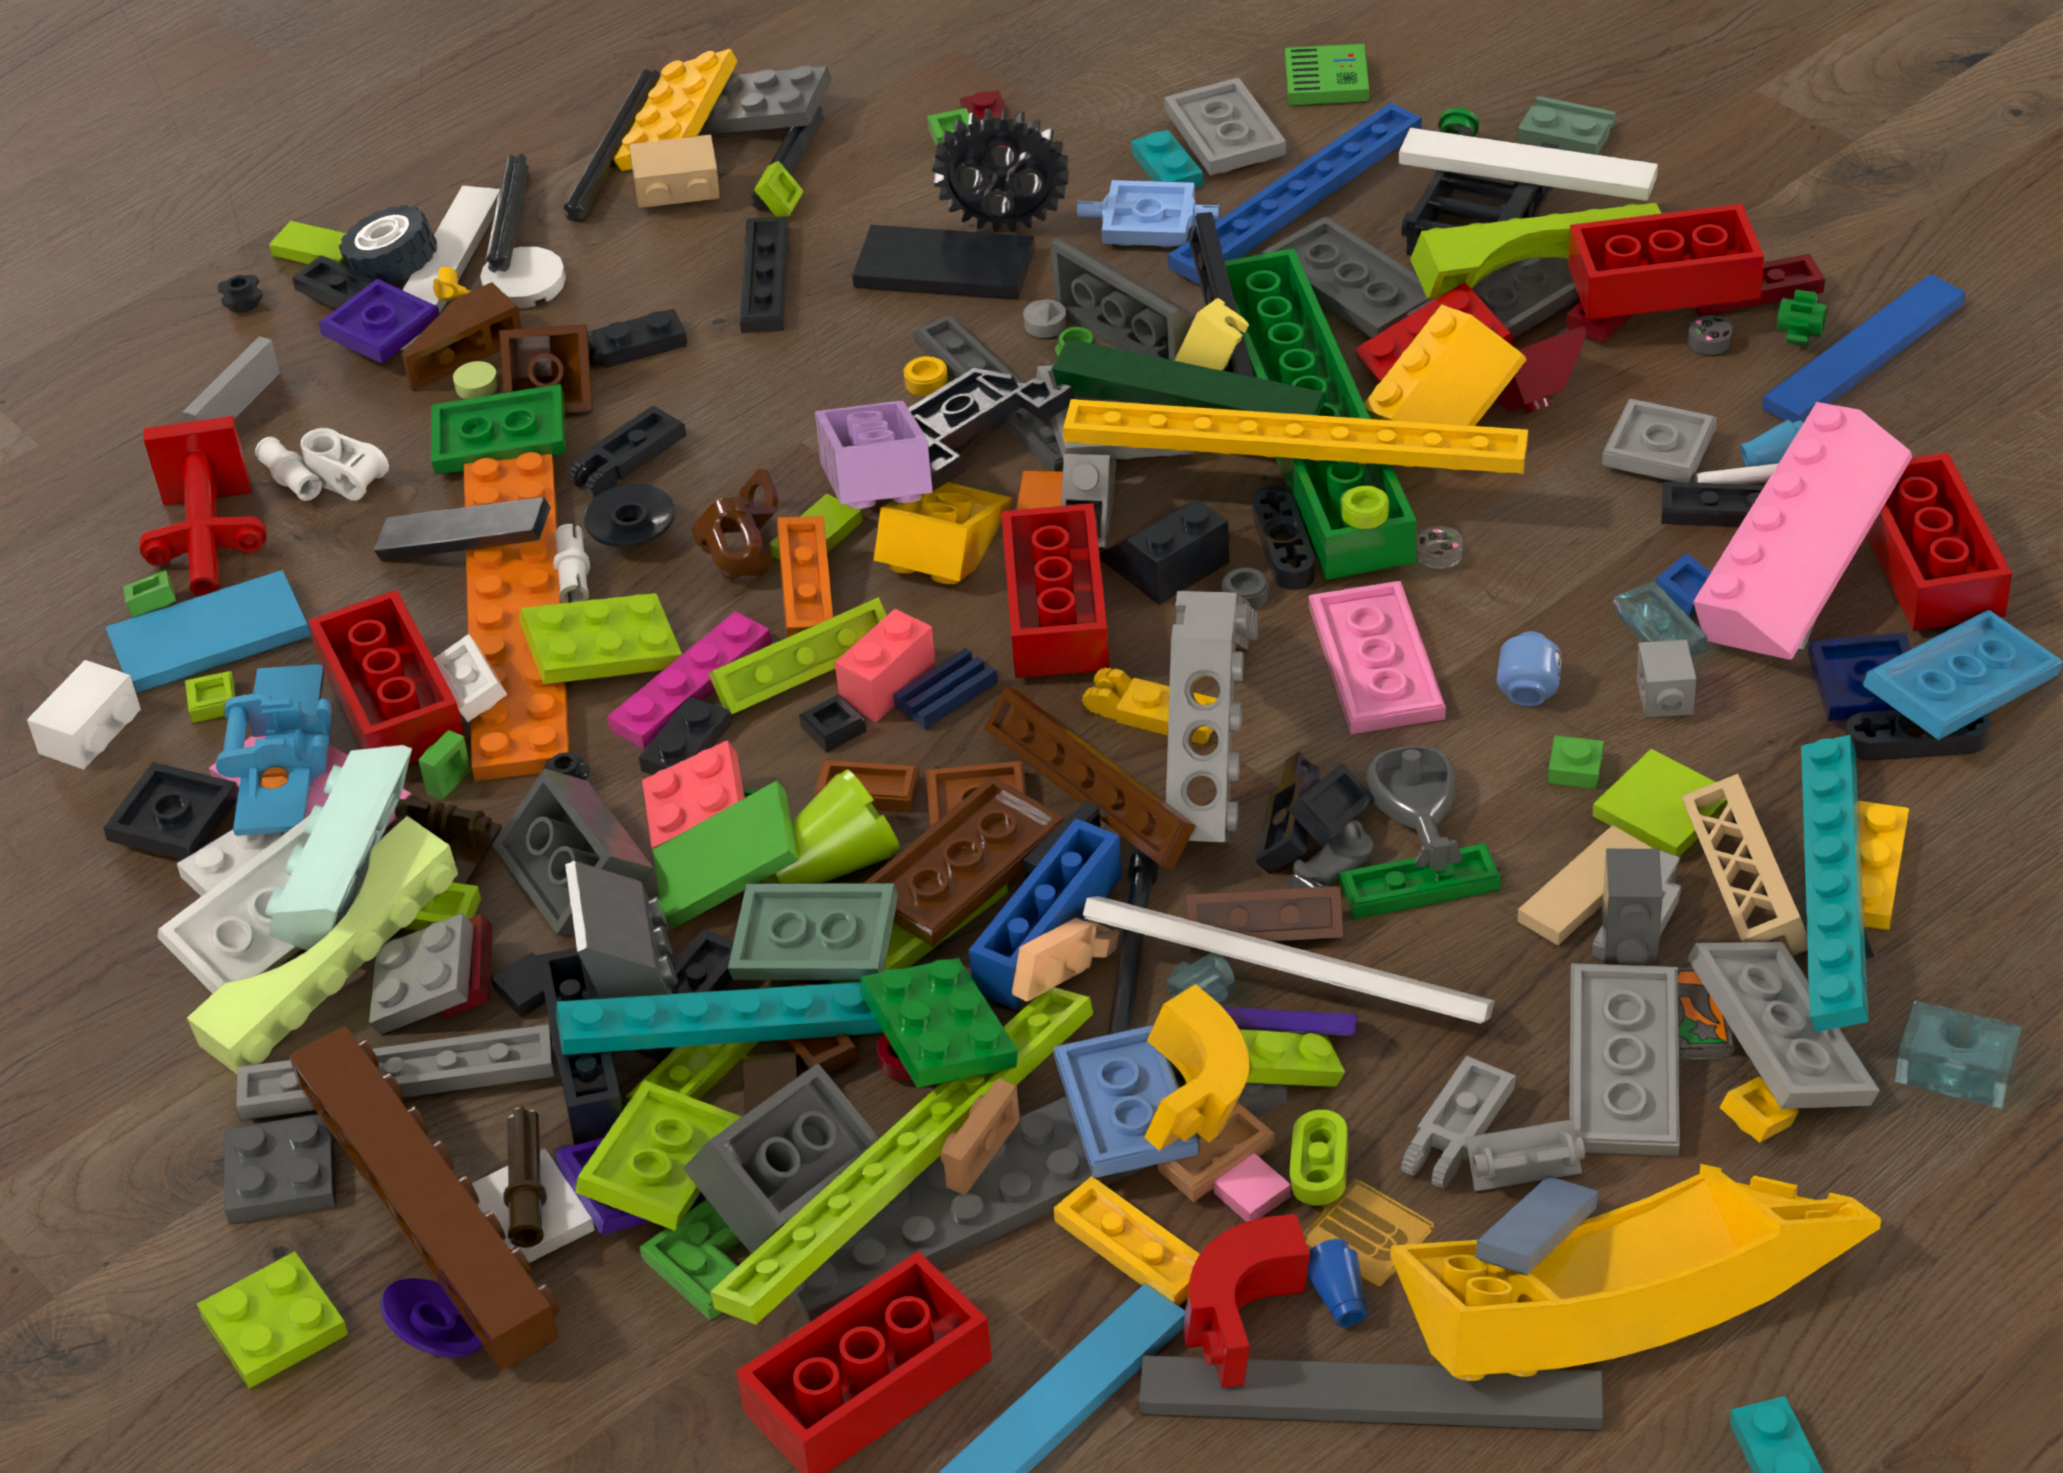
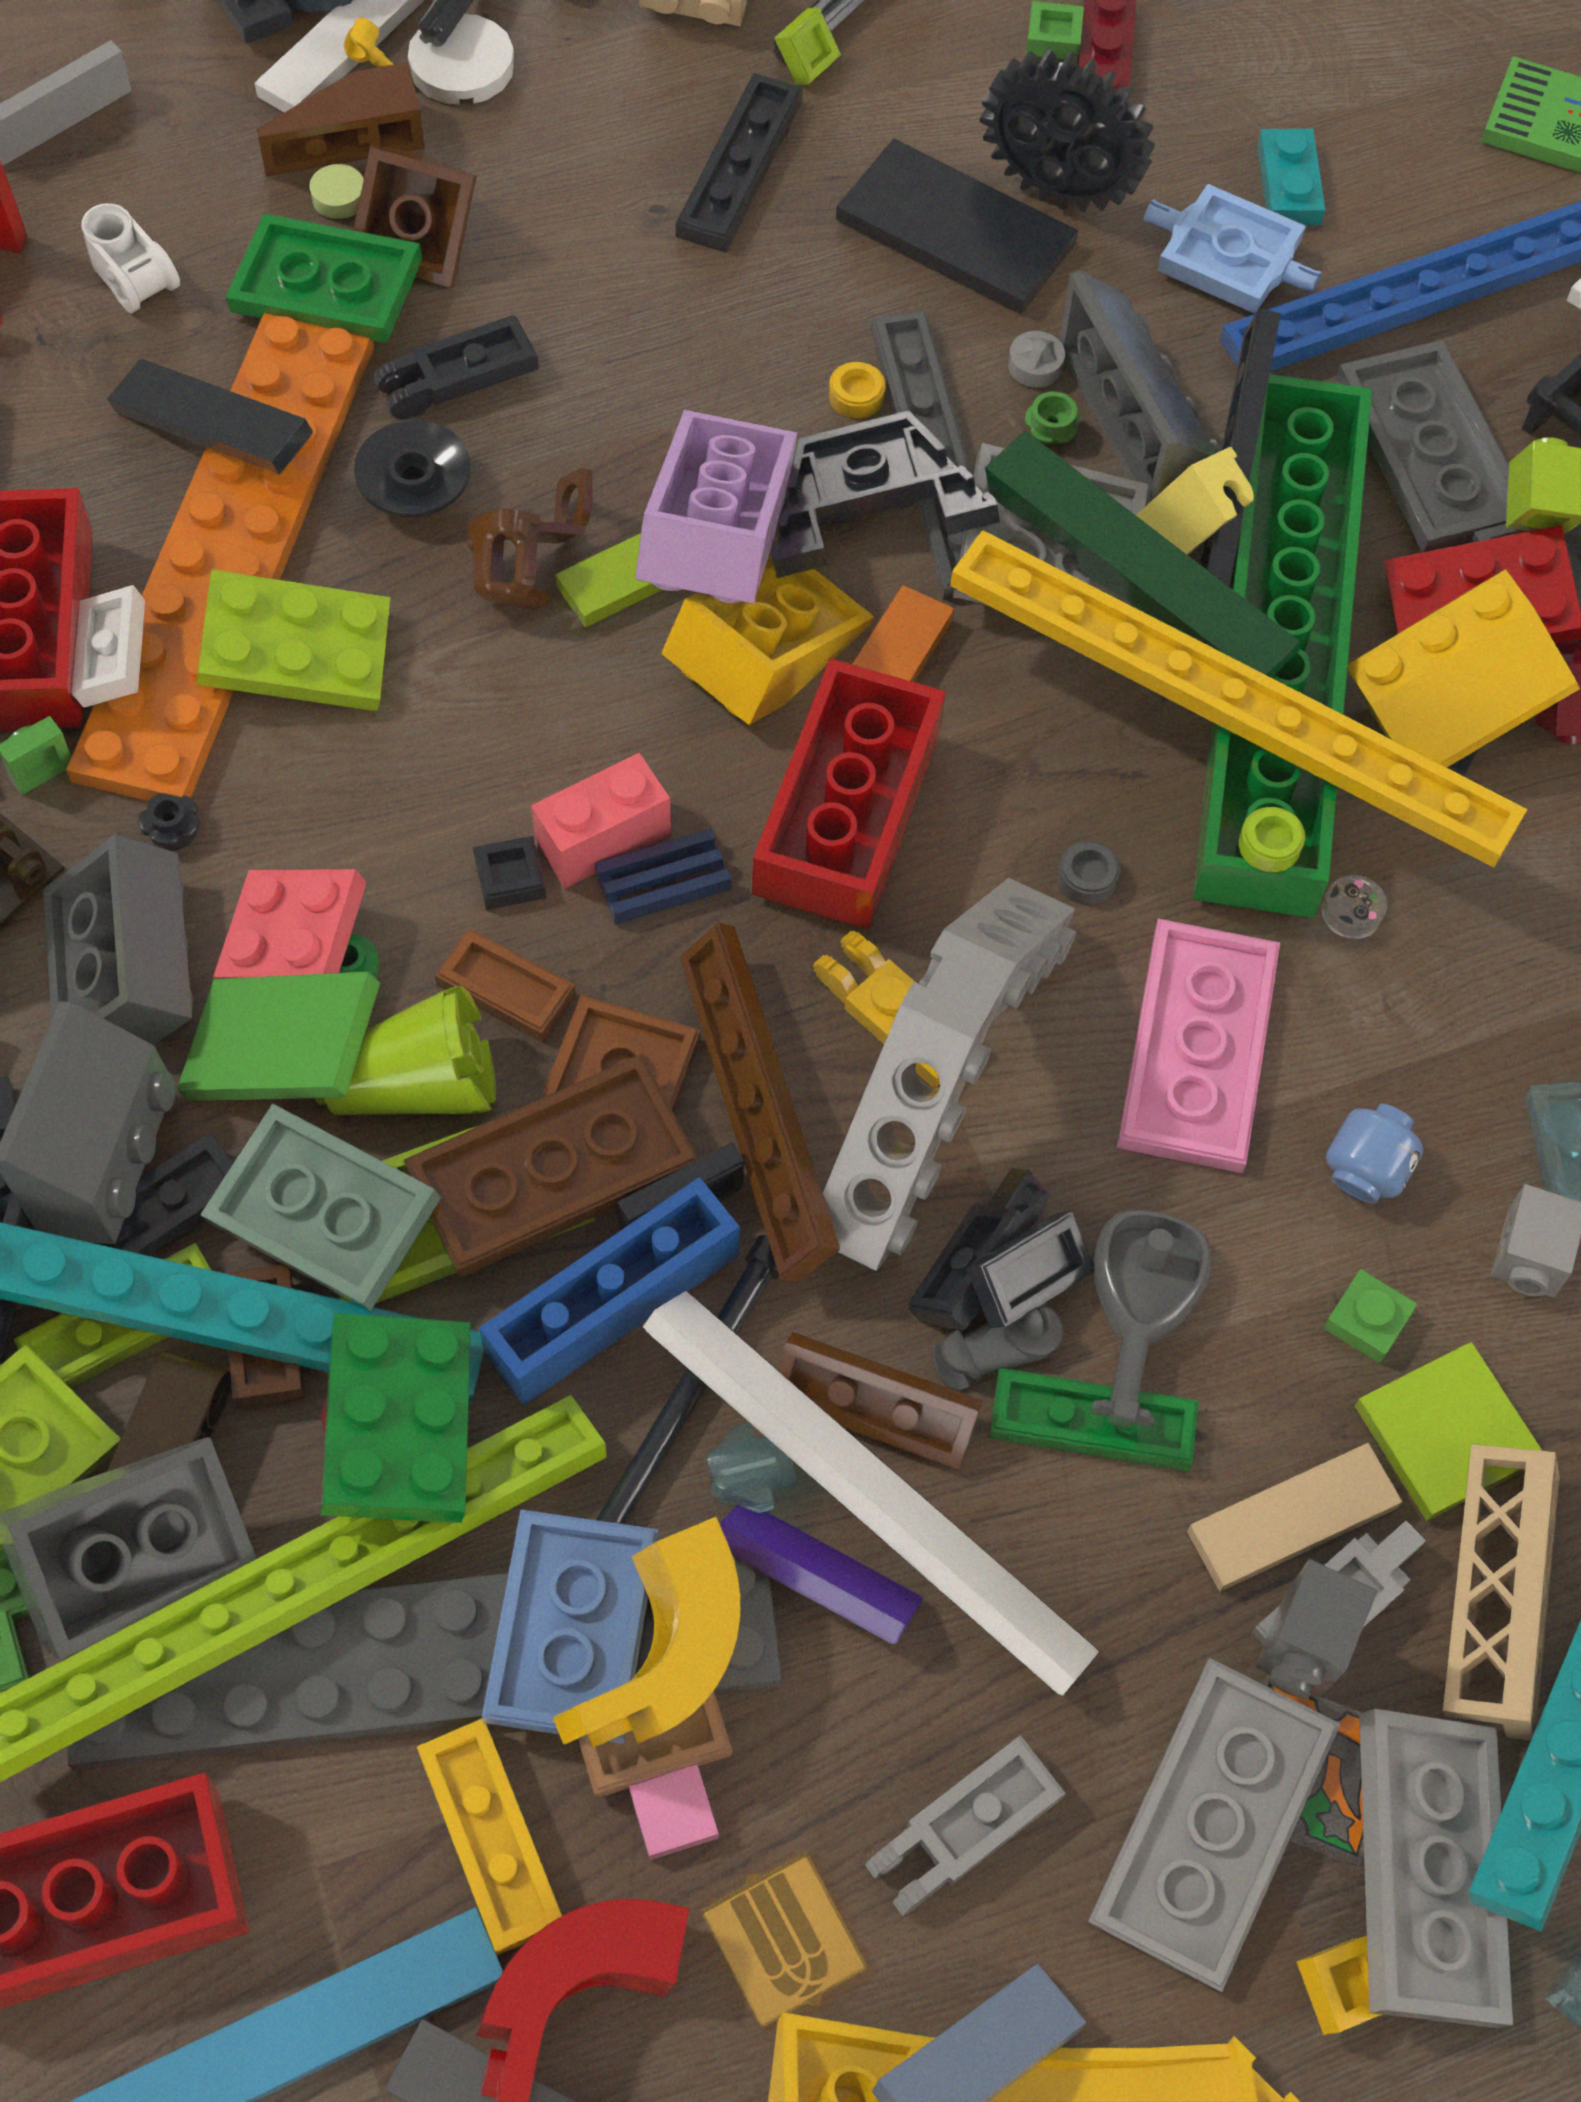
camera: 15 degrees right, 20 degrees up
(288, 468) = (66, 240): white pin -> none
(379, 320) = (263, 64): dark purple tile -> none
(571, 563) = (316, 513): white pin -> none
(636, 338) = (542, 200): black hinge -> none
(655, 703) = (375, 738): dark pink plate -> none
(689, 731) = (330, 824): black plate -> none
(793, 658) = (507, 763): lime plate -> none
(804, 572) = (568, 647): orange plate -> none
(981, 1136) = (345, 1630): medium nougat plate -> none
(1060, 956) = (600, 1362): light nougat hinge -> none
(1089, 481) = (961, 655): light grey slope -> none
(1172, 551) = (1021, 779): black slope -> none
(1225, 126) = (1385, 150): light grey plate -> none
(1280, 551) = (1152, 830): black beam -> none
(1292, 1059) = (799, 1642): lime plate -> none
(1319, 1157) = (768, 1810): lime plate -> none
(1338, 1281) = (705, 2015): blue cone -> none
(1524, 1155) = (1022, 1919): light grey hinge -> none

